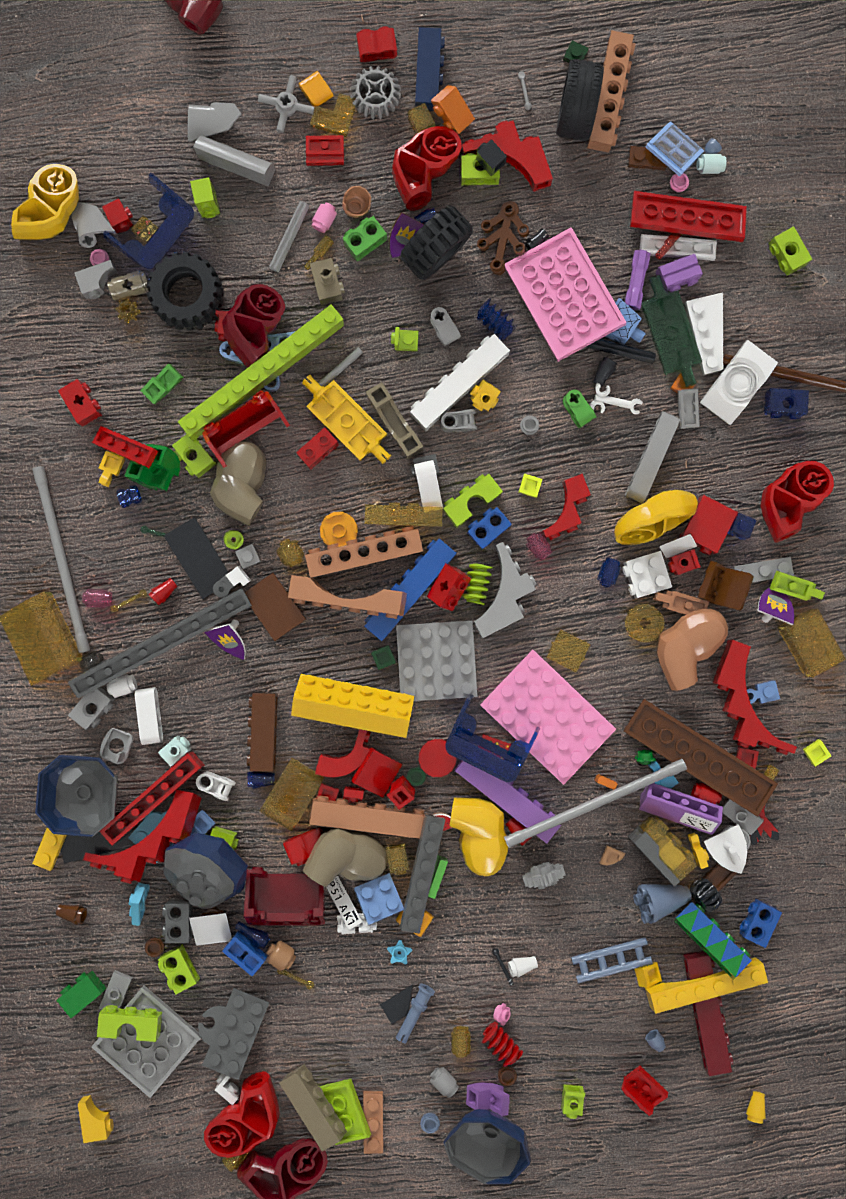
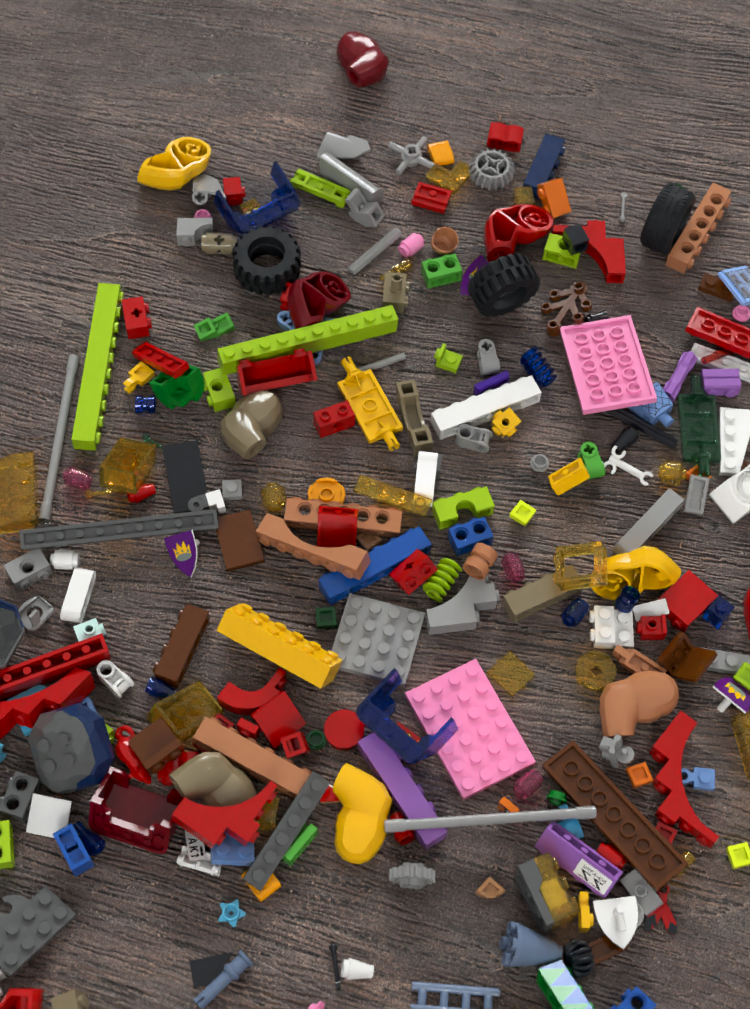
camera: 20 degrees right, 25 degrees down
(64, 469) = (97, 367): none -> lime brick
(123, 314) = (209, 261): clear yellow gear -> none
(140, 574) = (127, 465): none -> clear yellow brick
(205, 197) = (314, 198): lime brick -> none
(216, 176) = (320, 187): none -> lime plate
(233, 539) = (224, 470): lime tile -> none
(256, 849) = (129, 757): none -> red animal
(261, 193) = (364, 212): none -> light grey brick
(280, 842) = (156, 746): none -> reddish brown bracket
(280, 955) = (108, 868): medium nougat head -> none
(309, 984) = (124, 912): clear yellow hinge -> none
(364, 573) = (336, 526): none -> red panel
(378, 885) = (211, 822): none -> red arch
(395, 565) = (368, 542): none -> medium nougat tile
(457, 355) = (491, 383): none -> dark purple tile
(509, 559) = (481, 558): none -> nougat wheel
(562, 432) = (568, 476): none -> yellow slope
(574, 563) = (536, 596): none -> dark tan brick
(575, 491) = (565, 533): red arch -> none
(615, 753) = (527, 784): none -> clear pink brick
(623, 528) = (600, 575): none -> clear yellow window
(654, 545) = (626, 600): none -> clear blue wheel
(659, 392) = (672, 472): none -> clear yellow head
(688, 698) = (615, 751): none -> light grey hips
(710, 707) = (639, 775): none -> orange tile

